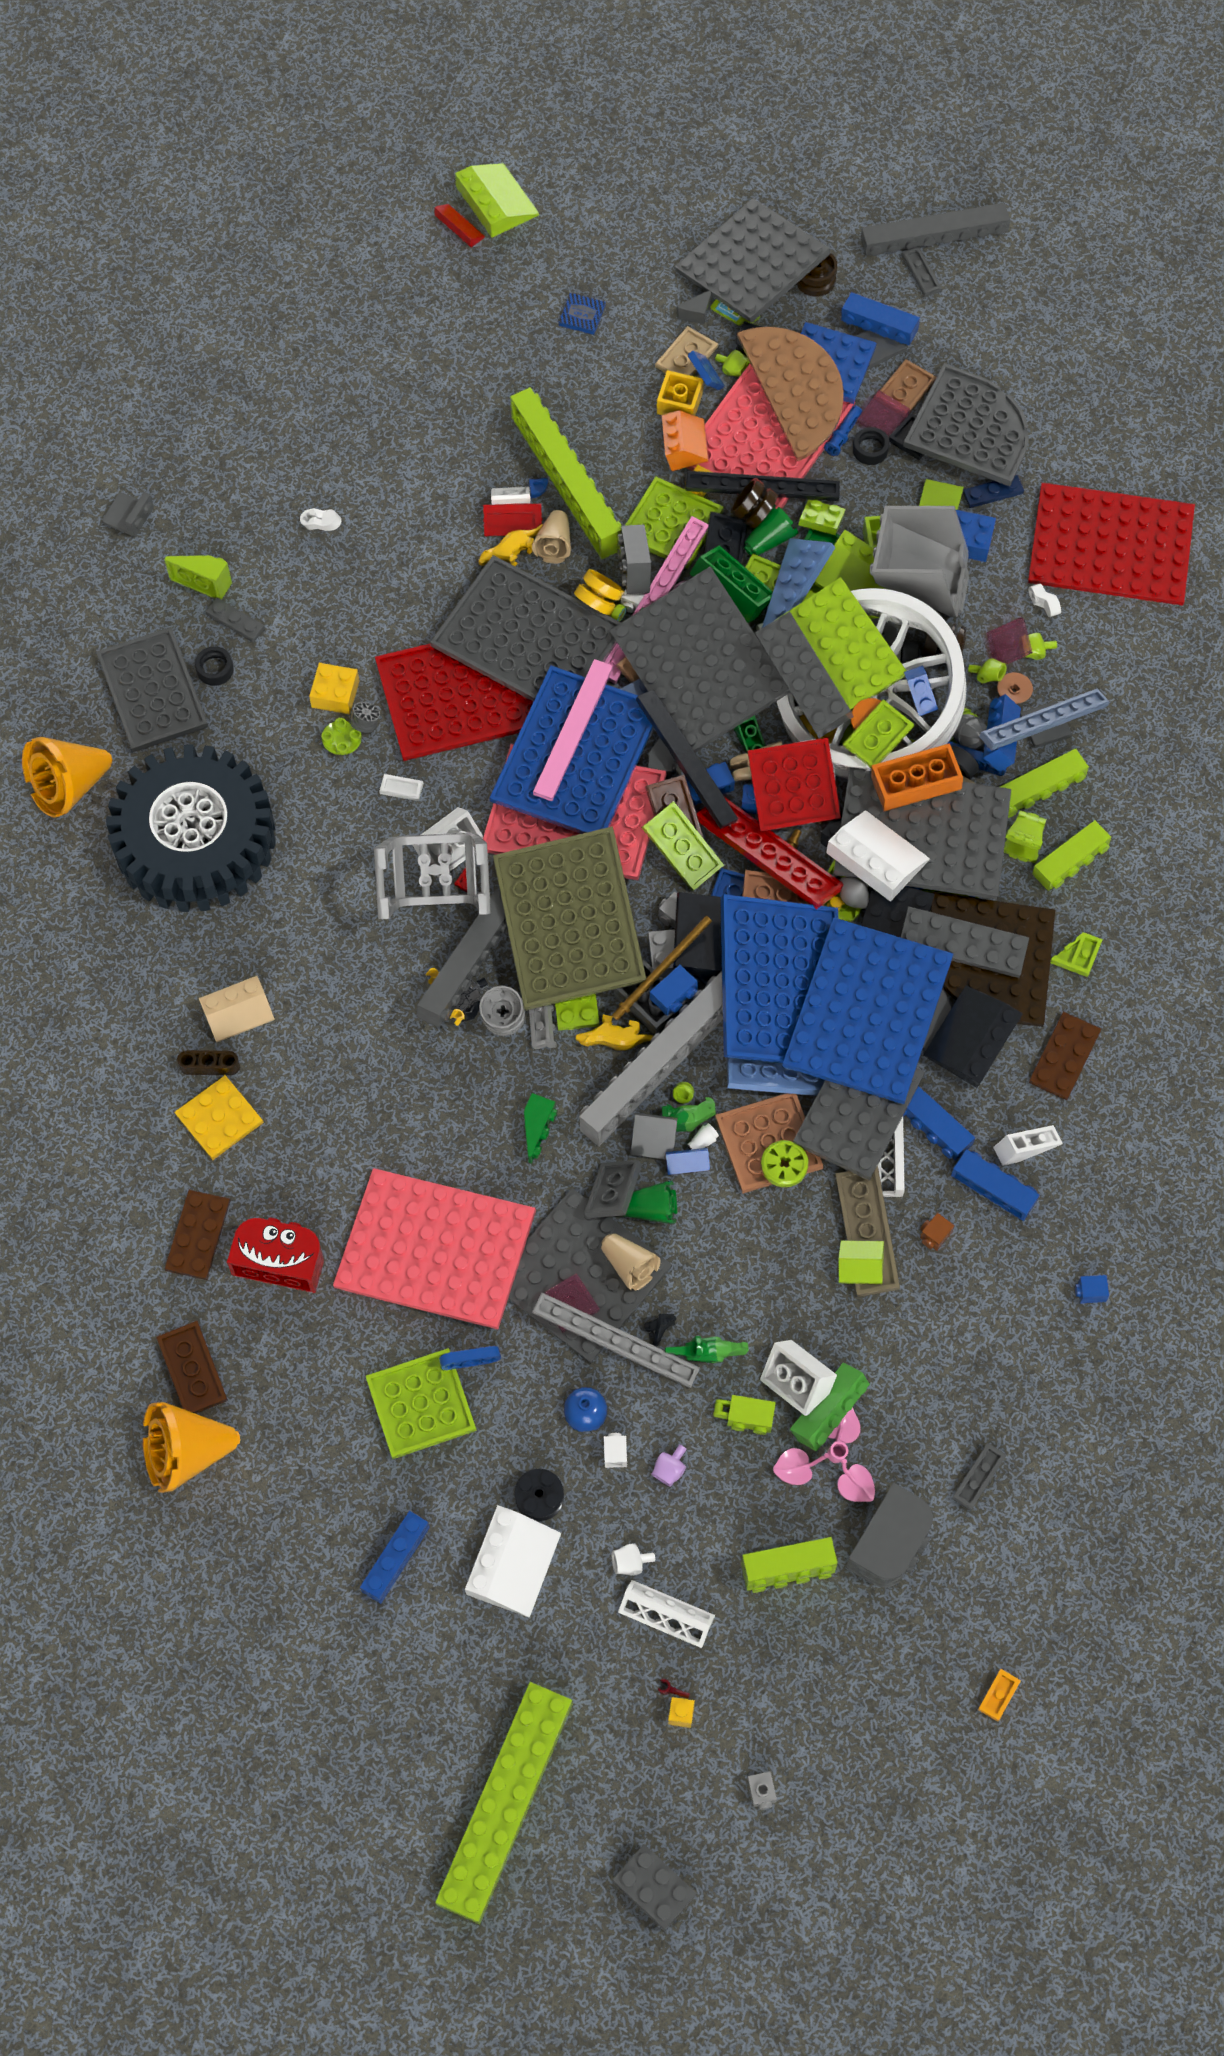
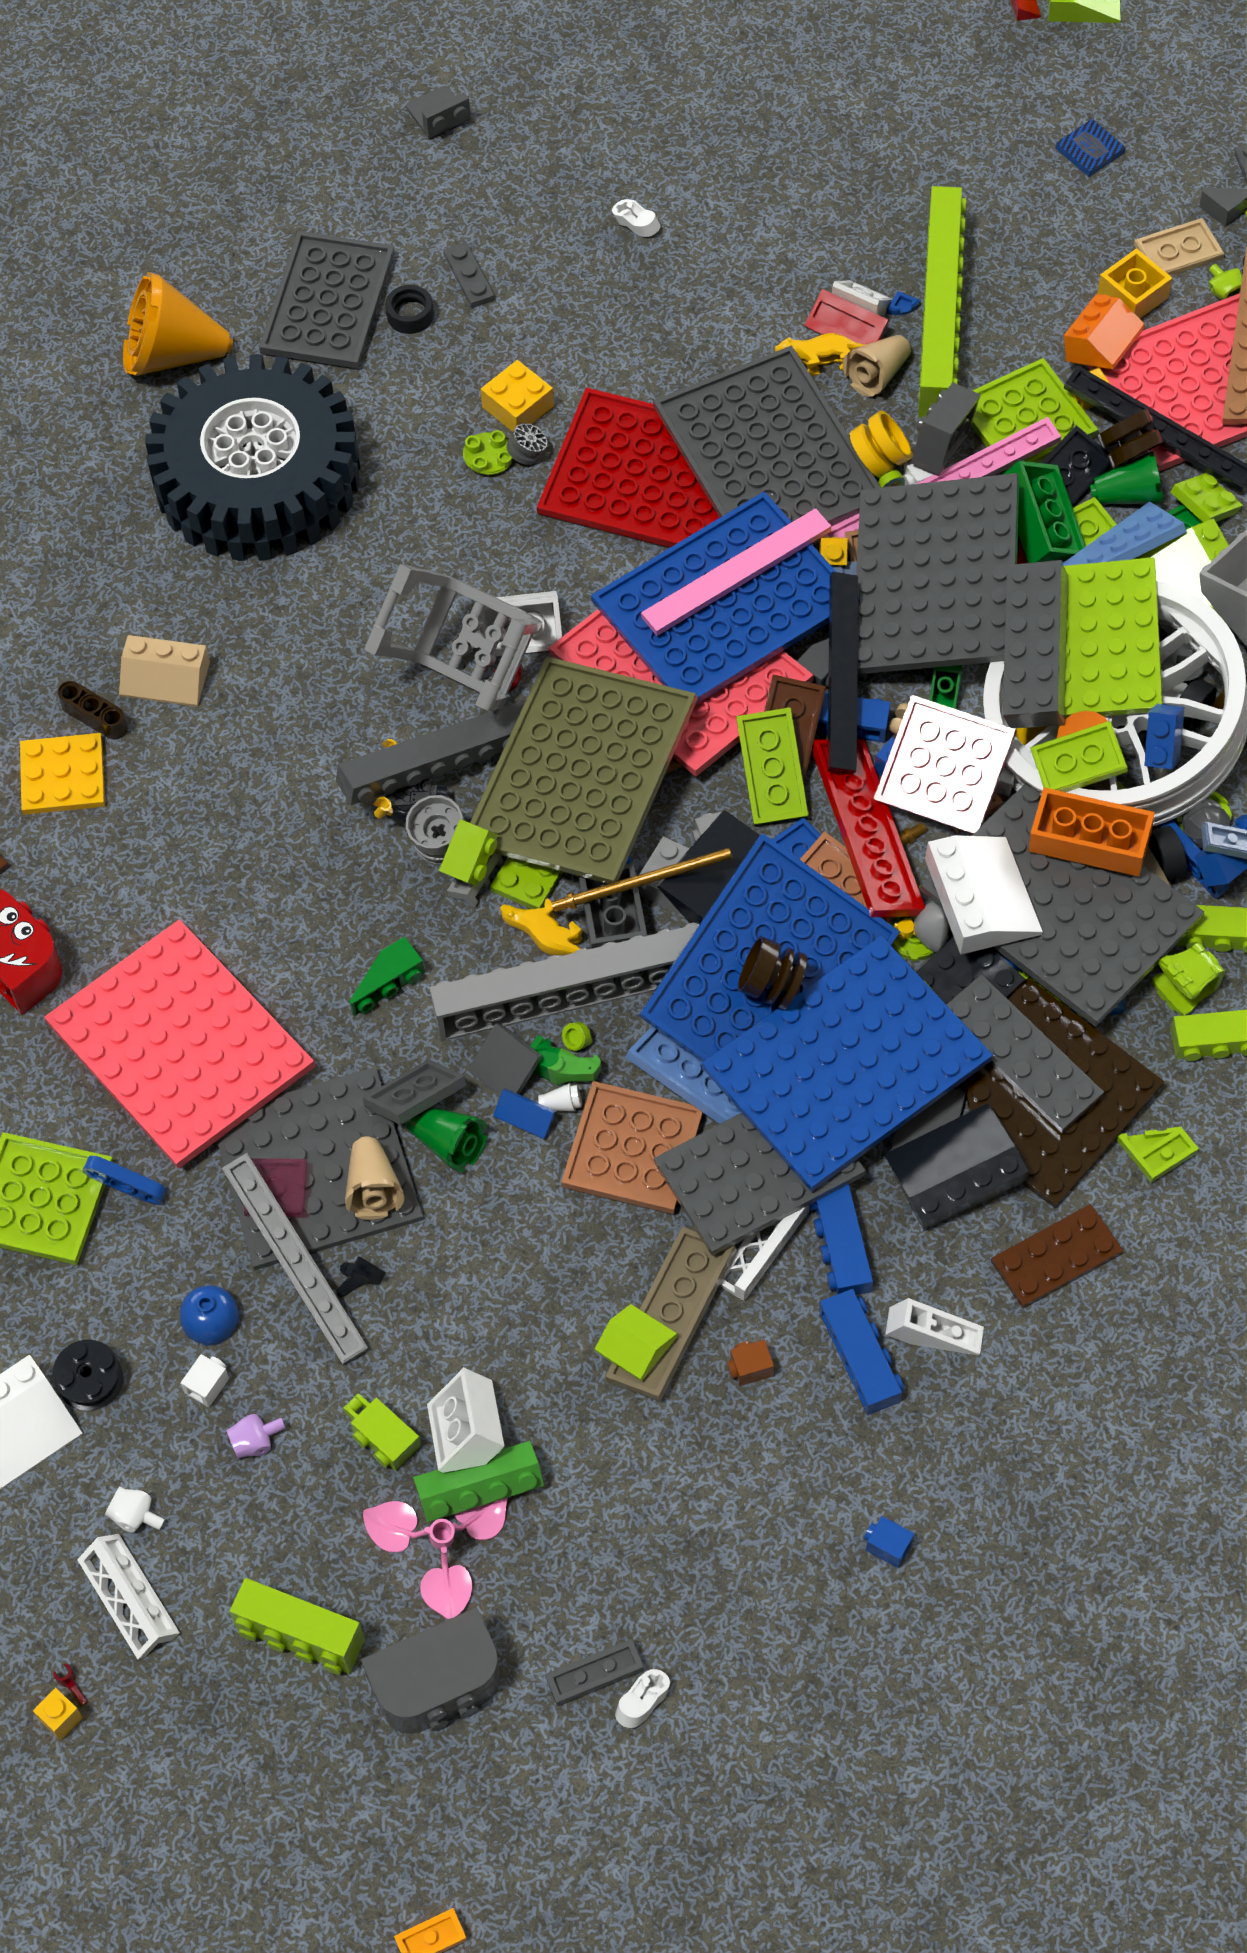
camera: 35 degrees right, 5 degrees down
(200, 573) = (464, 206): lime slope -> none
(401, 787) = (514, 539): white tile -> none
(537, 1014) = (469, 853): none -> lime brick
(620, 679) = (834, 550): none -> yellow brick
(674, 990) = (638, 912): blue brick -> none
(706, 370) = (1183, 271): blue tile -> none
(709, 1349) = (391, 1333): green animal -> none
(762, 1790) = (80, 1862): light grey brick -> none
(785, 1151) = (644, 1182): lime wheel -> none
(790, 980) = (776, 974): none -> dark brown wheel
(1016, 1483) = (633, 1709): none -> white piece

